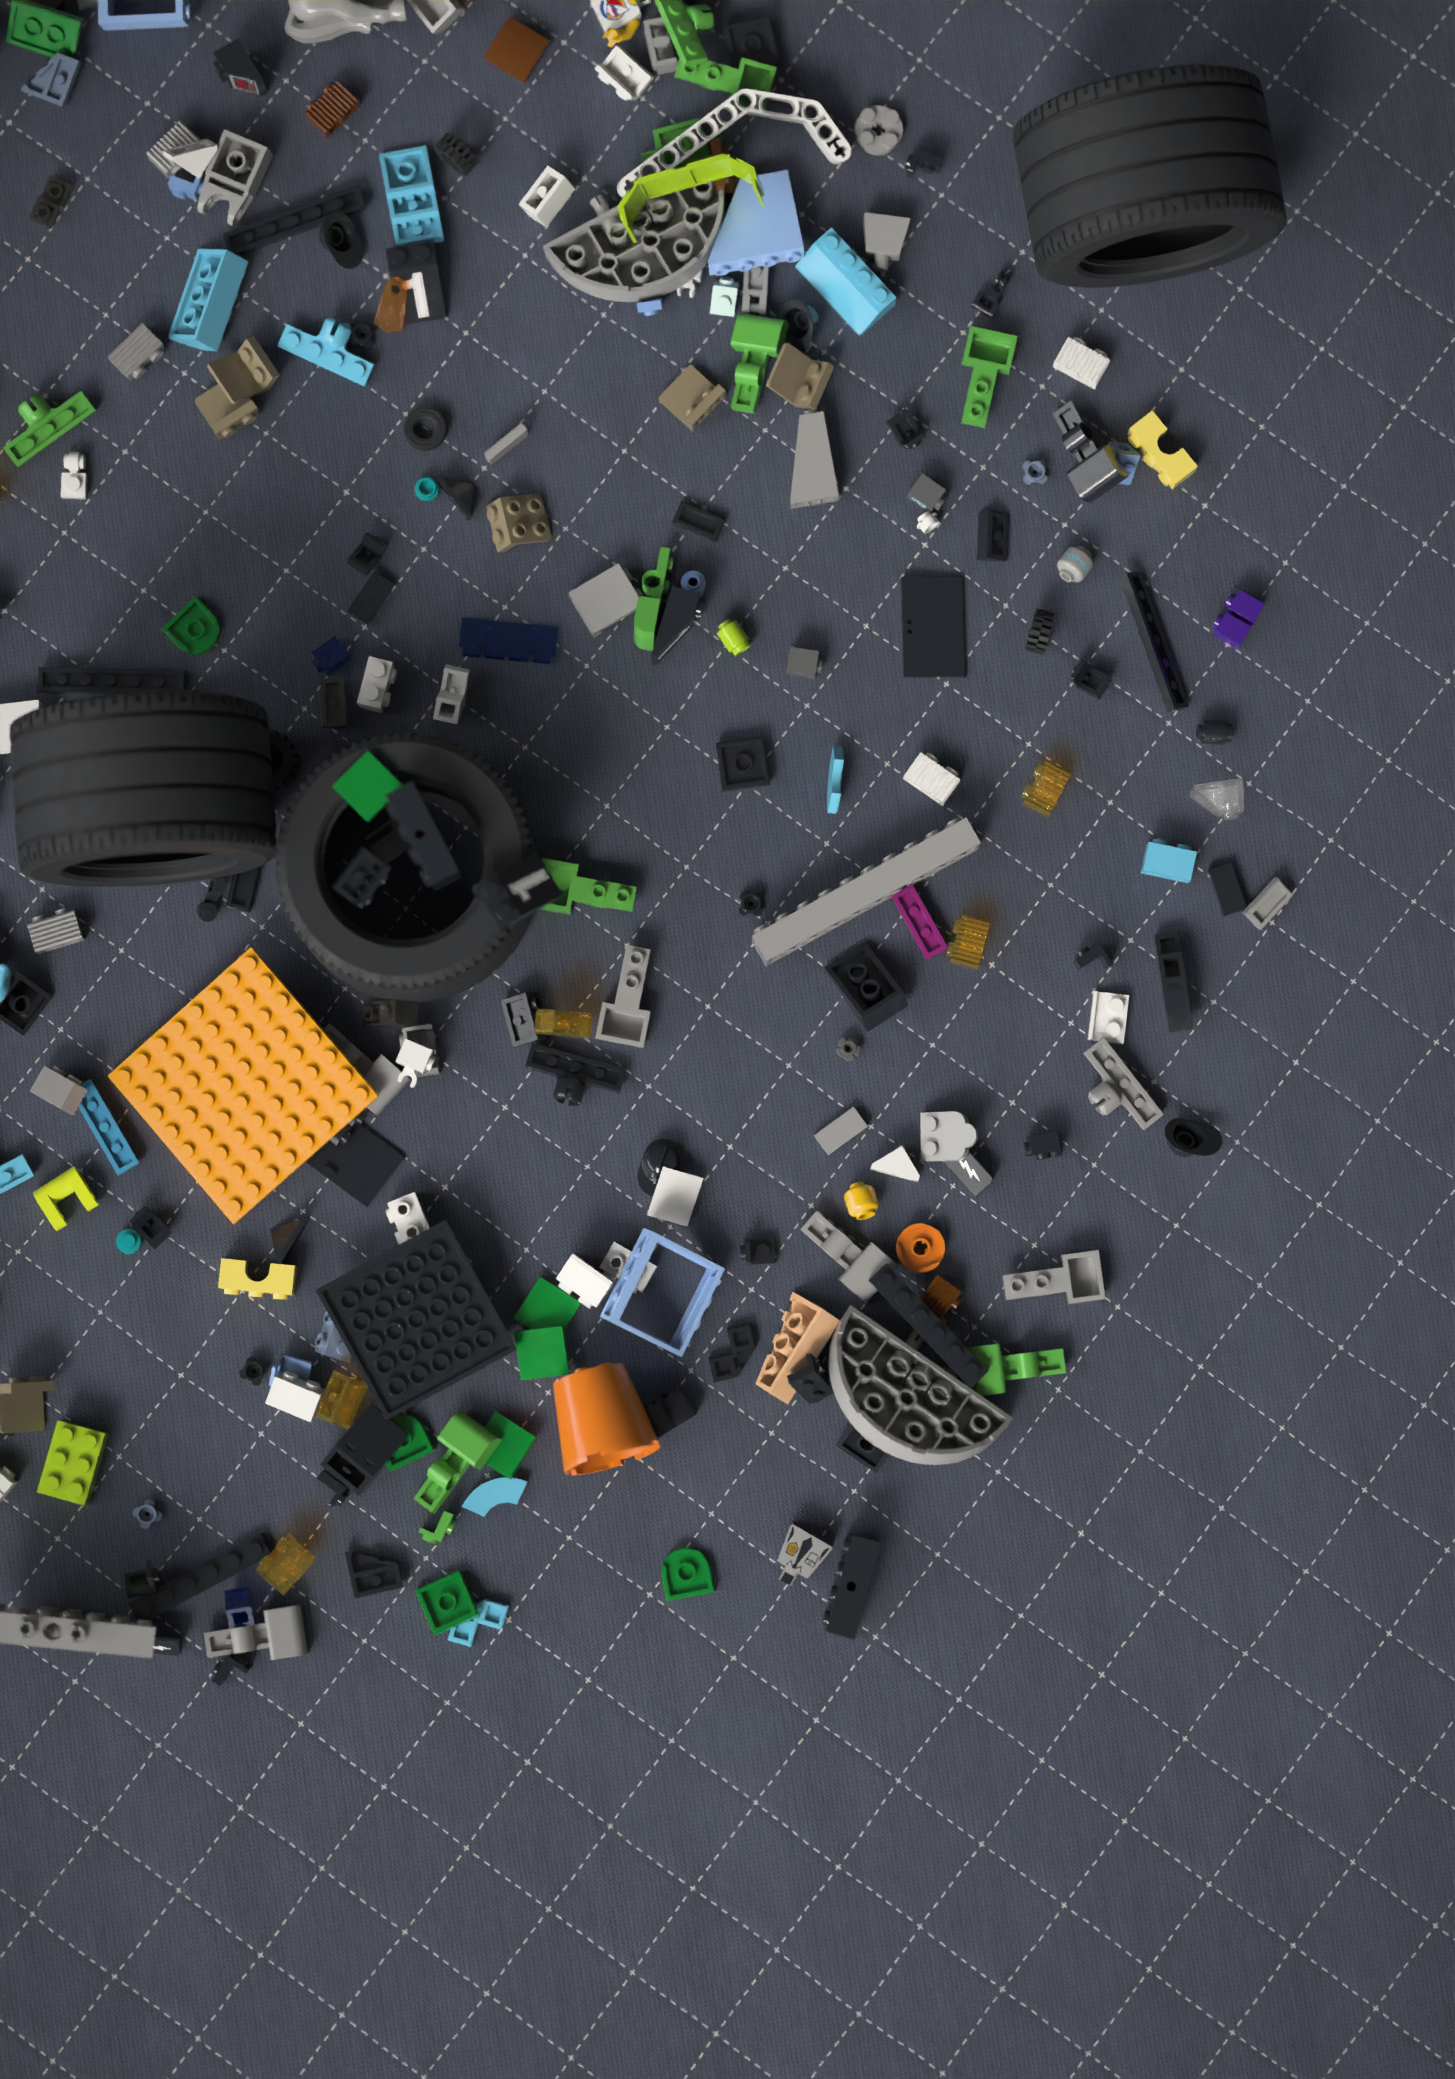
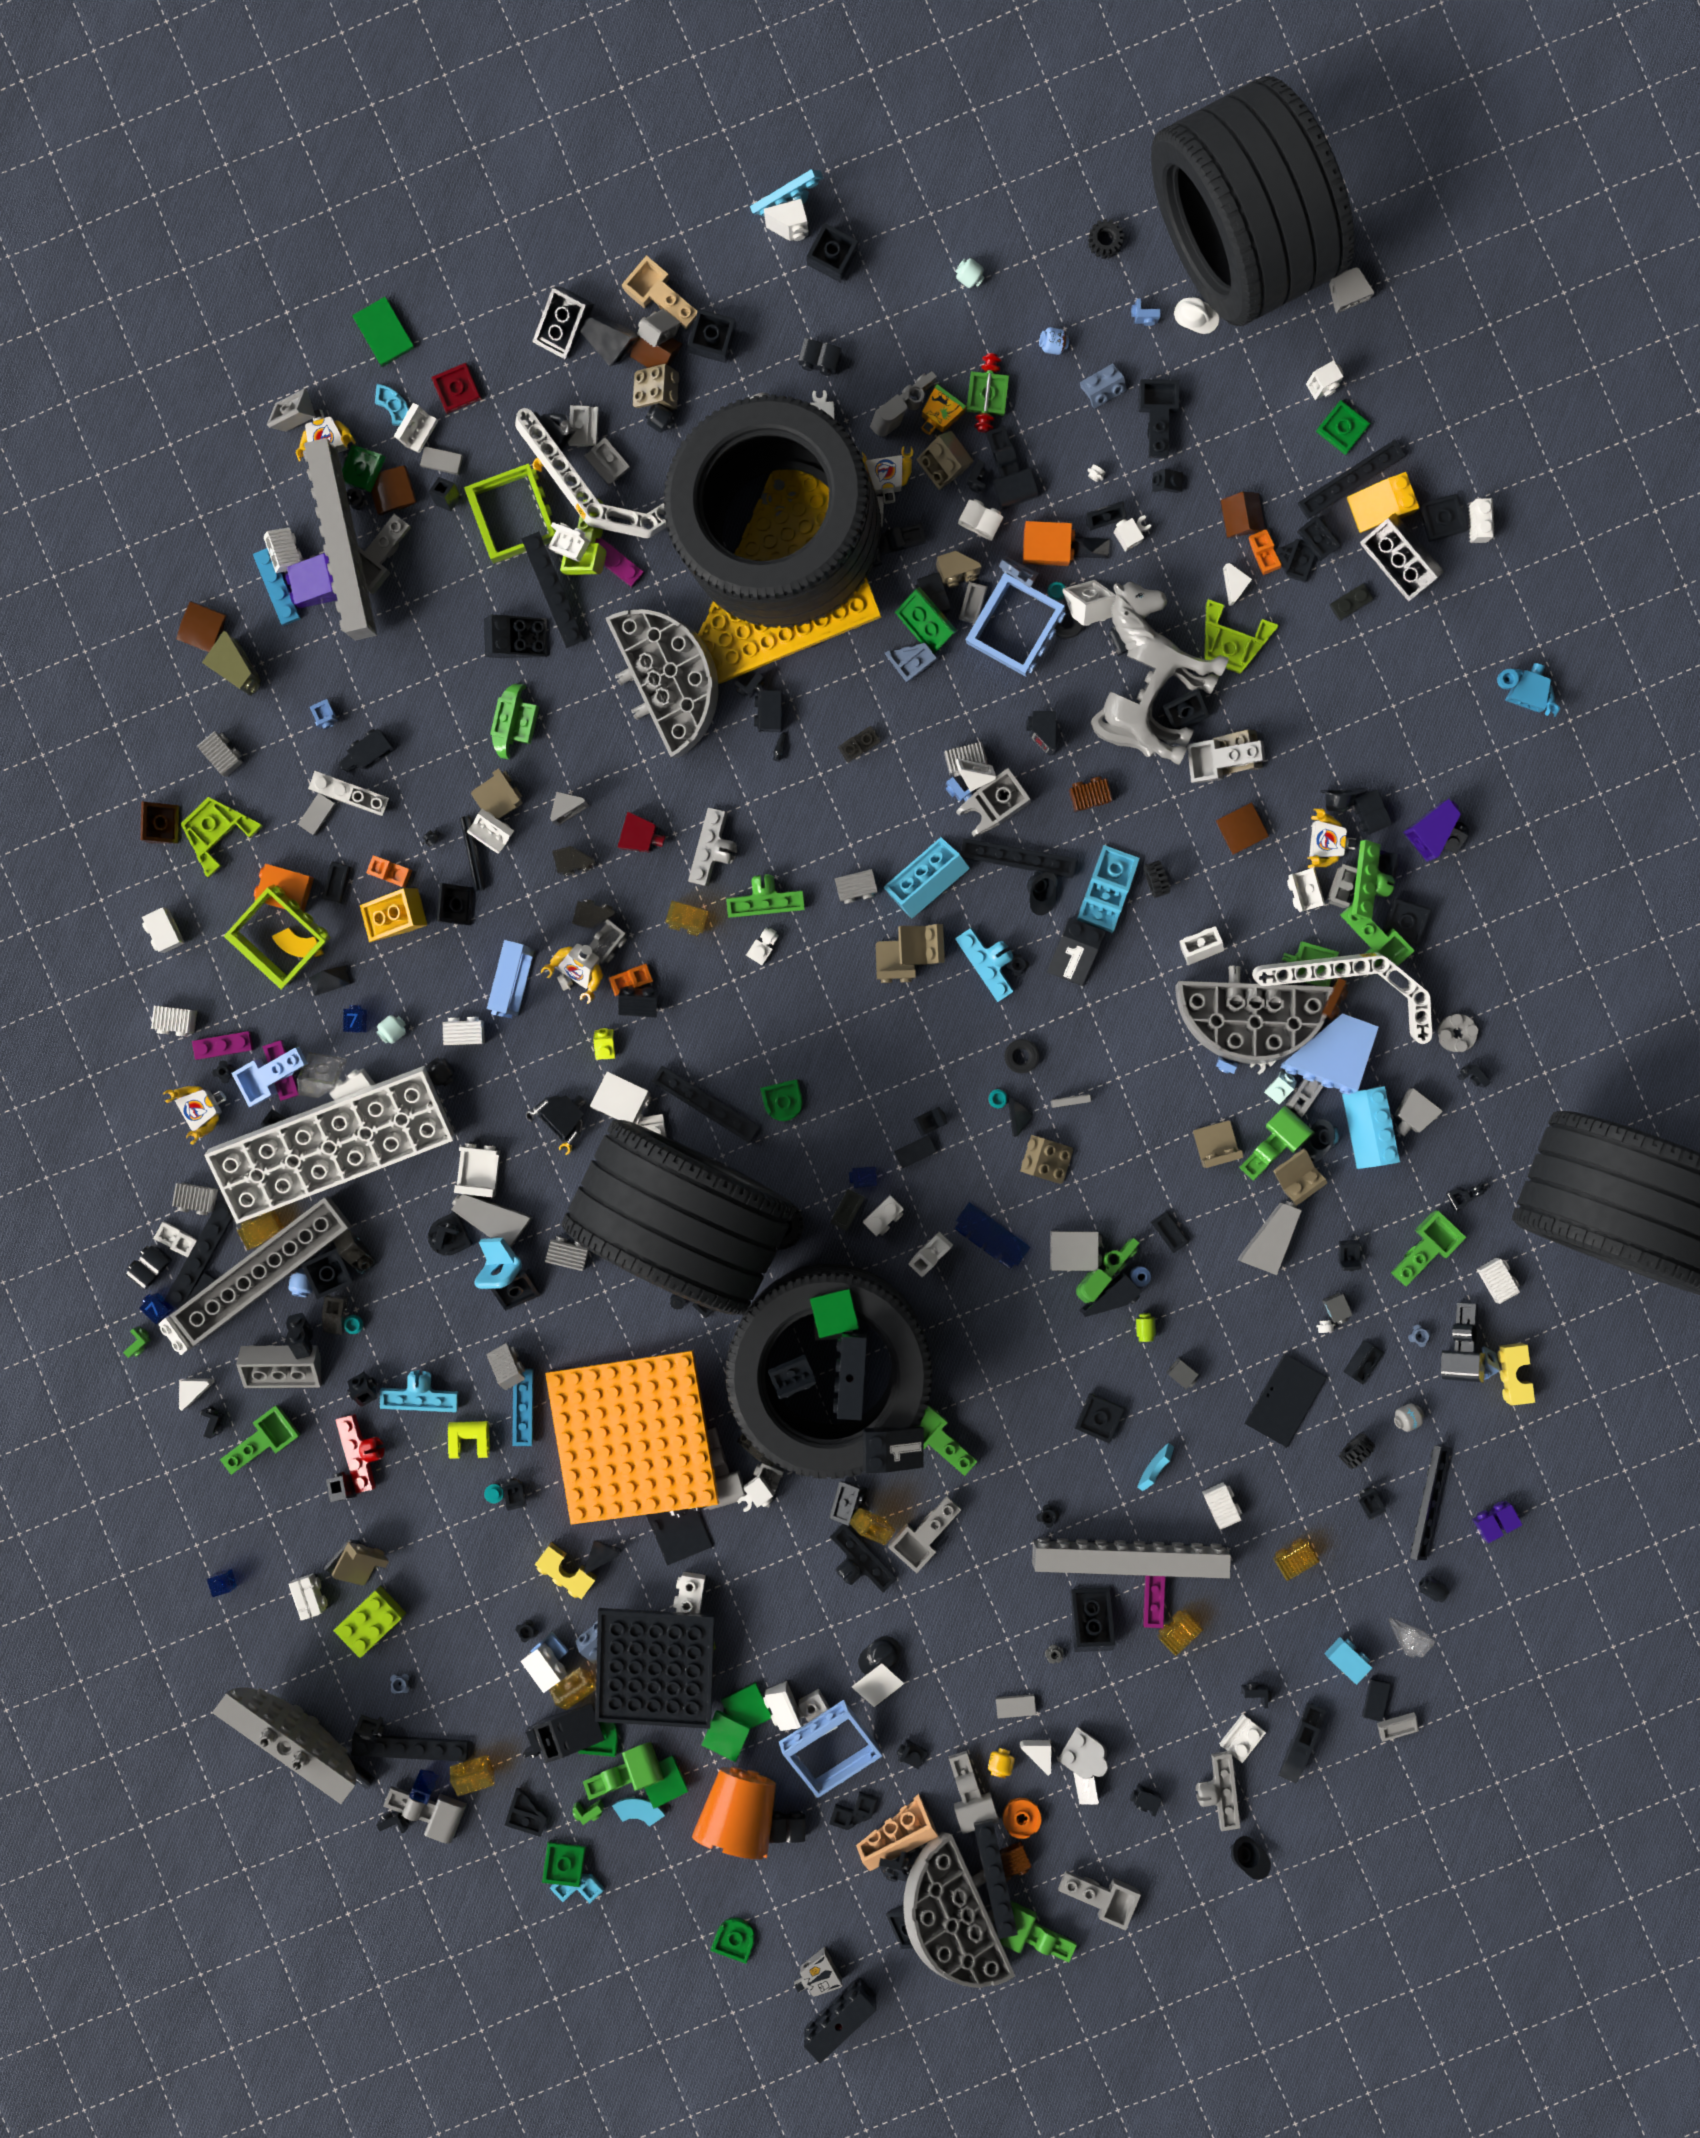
camera: 35 degrees right, 5 degrees up
(392, 307) = (1049, 958): clear orange piece -> none
(684, 178) = (1308, 998): lime windscreen -> none

